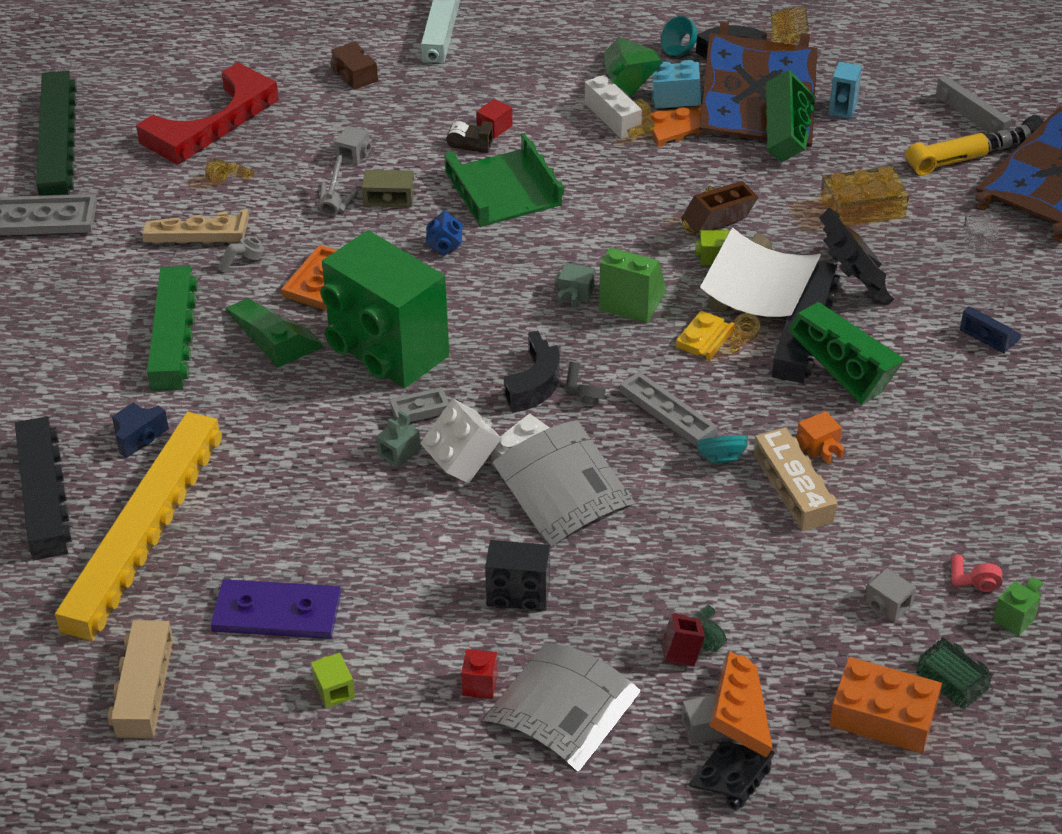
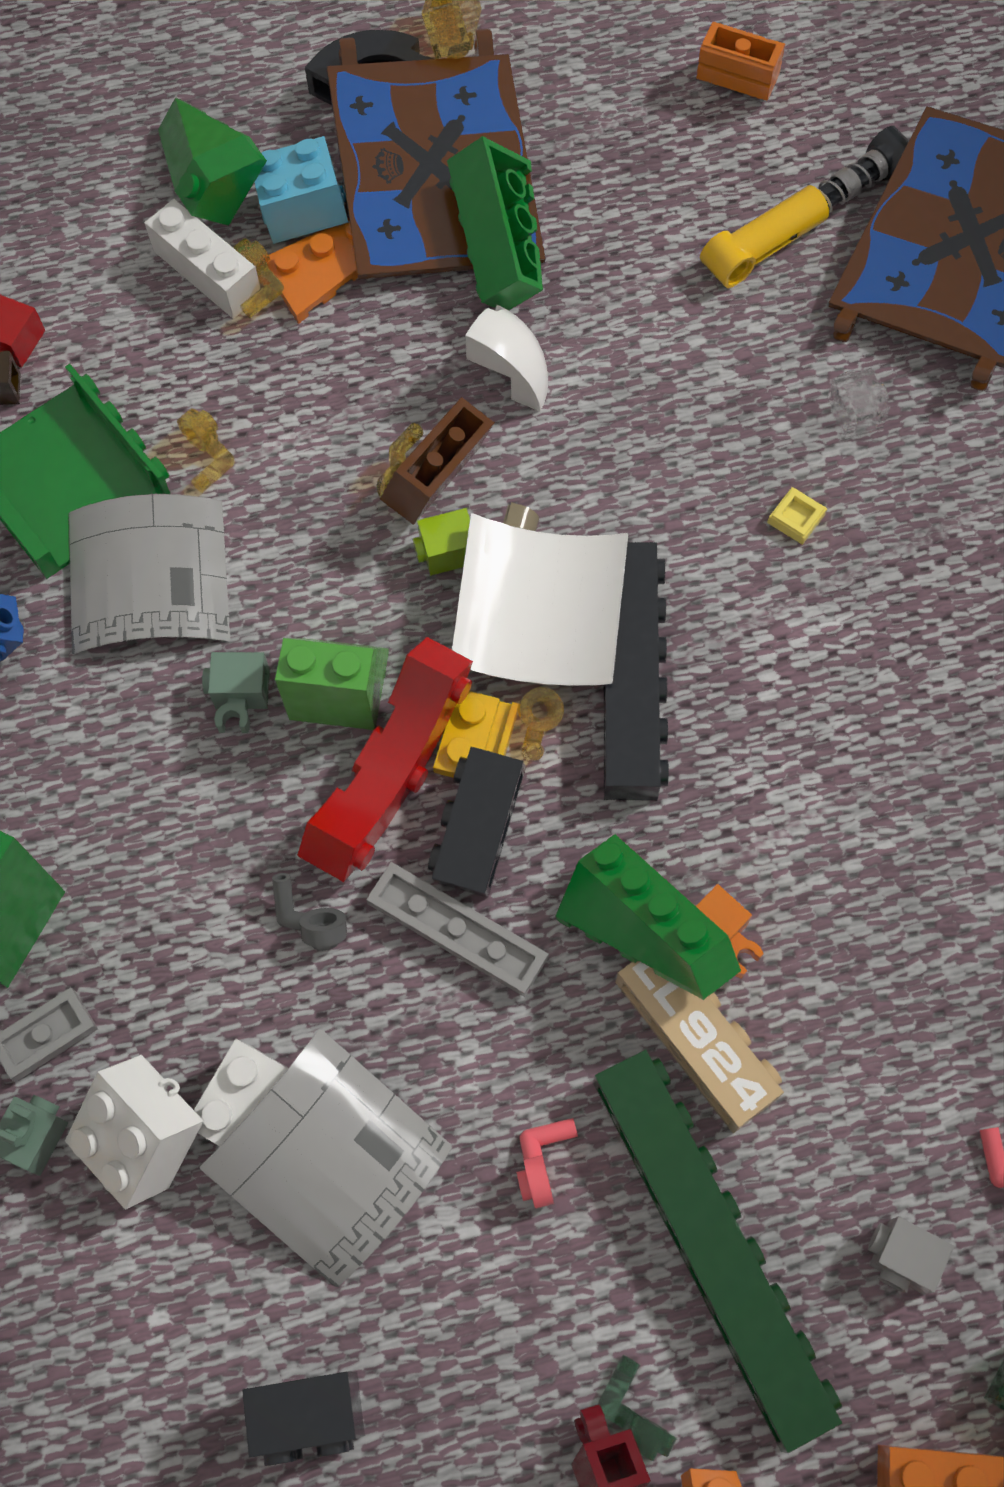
camera: 15 degrees left, 25 degrees up
(537, 383) = (232, 928): black arch -> none
(539, 227) = (147, 570): none -> light grey sticker
(587, 178) = (201, 432): none -> clear yellow plate
(653, 329) = (391, 762): none -> red brick
(674, 33) = (264, 77): teal piece -> none
(678, 518) = (534, 1179): none -> coral plate
(695, 361) = (477, 821): none -> black brick
(722, 448) = (568, 1001): teal piece -> none
(775, 570) = (717, 1254): none -> dark green brick
(776, 167) = (510, 348): none -> white brick
(779, 409) = (647, 919): none -> green wedge
(845, 90) = (576, 140): medium azure brick -> none
(846, 351) = (722, 749): green wedge -> none
(854, 256) = (679, 520): black bracket -> none
(865, 195) = (659, 368): clear yellow brick -> none
(927, 277) = (797, 515): none -> light yellow tile
(957, 69) = (740, 61): none -> orange brick
(971, 106) = (781, 124): light grey plate -> none
(988, 330) = (922, 611): dark blue panel -> none

